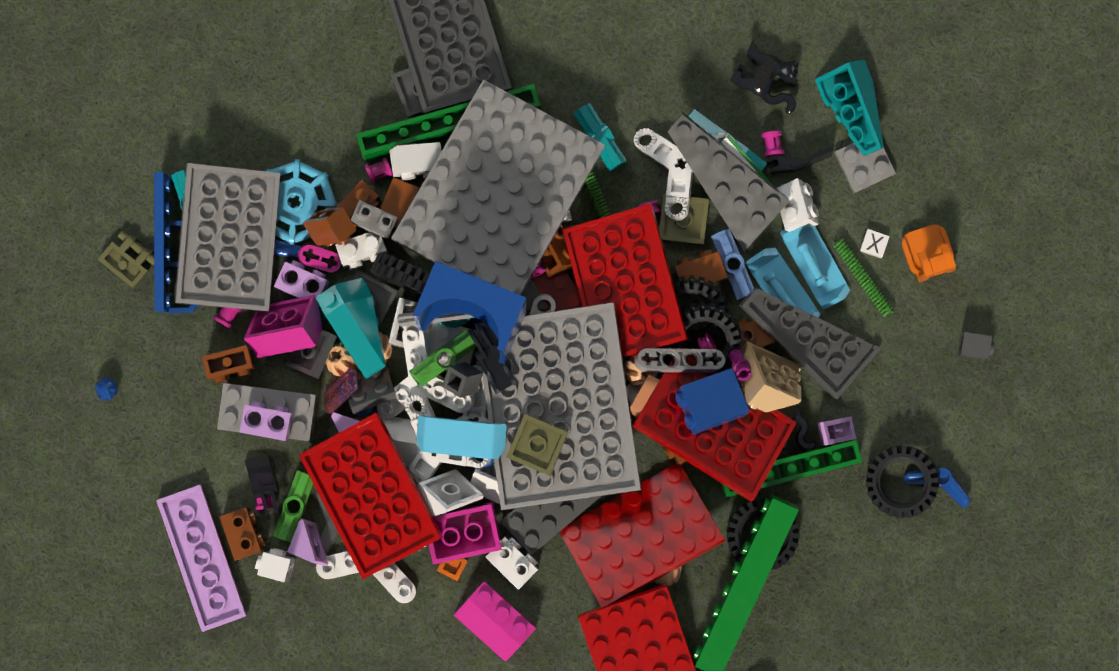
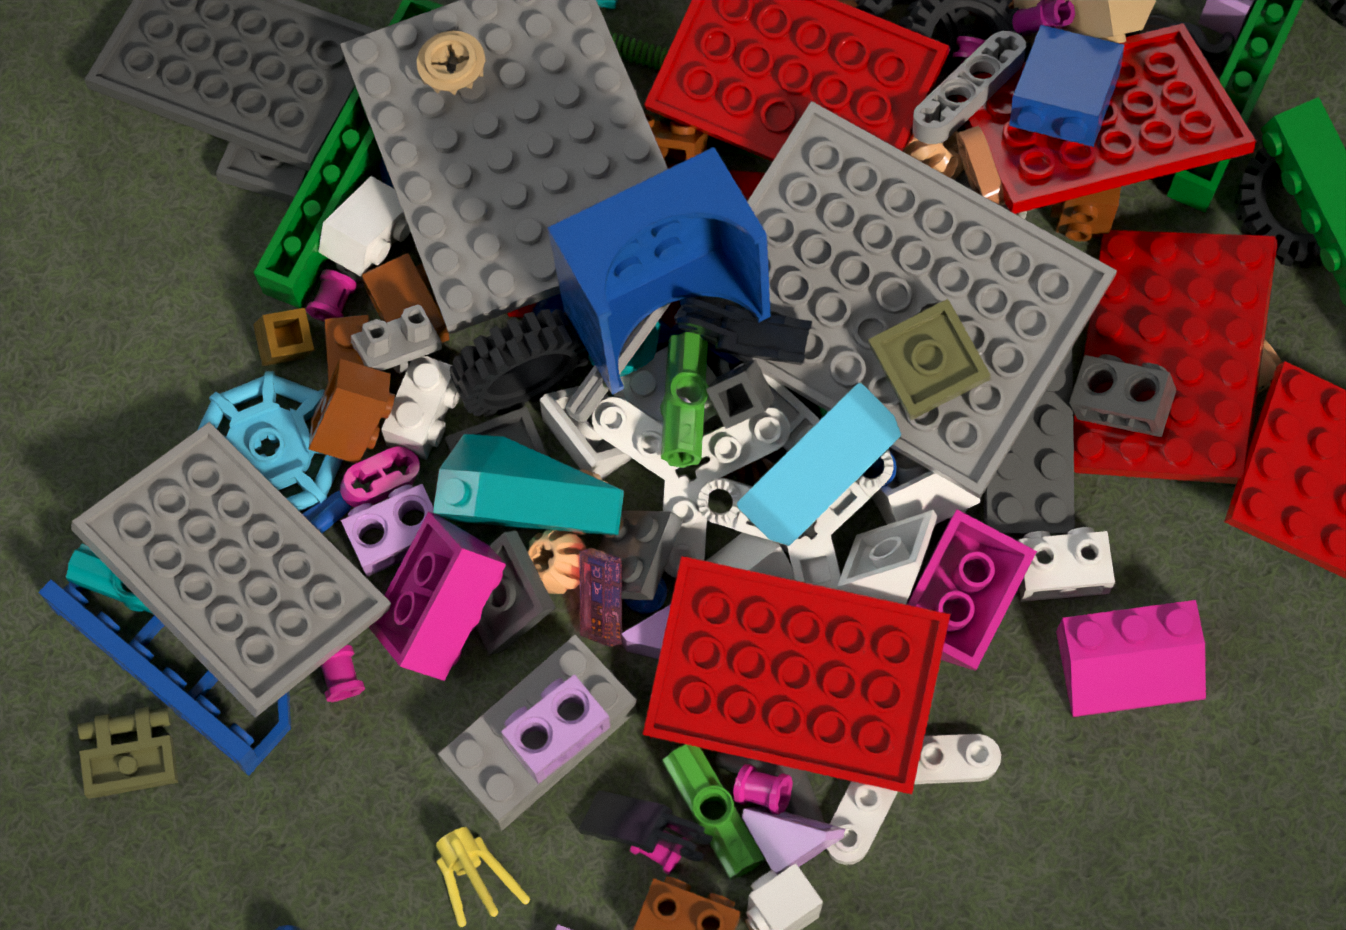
camera: 50 degrees left, 15 degrees down
(195, 423) = (461, 854): none -> light yellow plant
(228, 363) = (414, 726): dark orange brick -> none
(317, 519) = (762, 789): none -> dark pink bush
(343, 168) = (283, 336): none -> pearl gold brick
(453, 568) = (1001, 657): orange plate -> none
(507, 126) = (435, 55): none -> tan gear
(596, 532) = (1118, 404): none -> dark grey brick

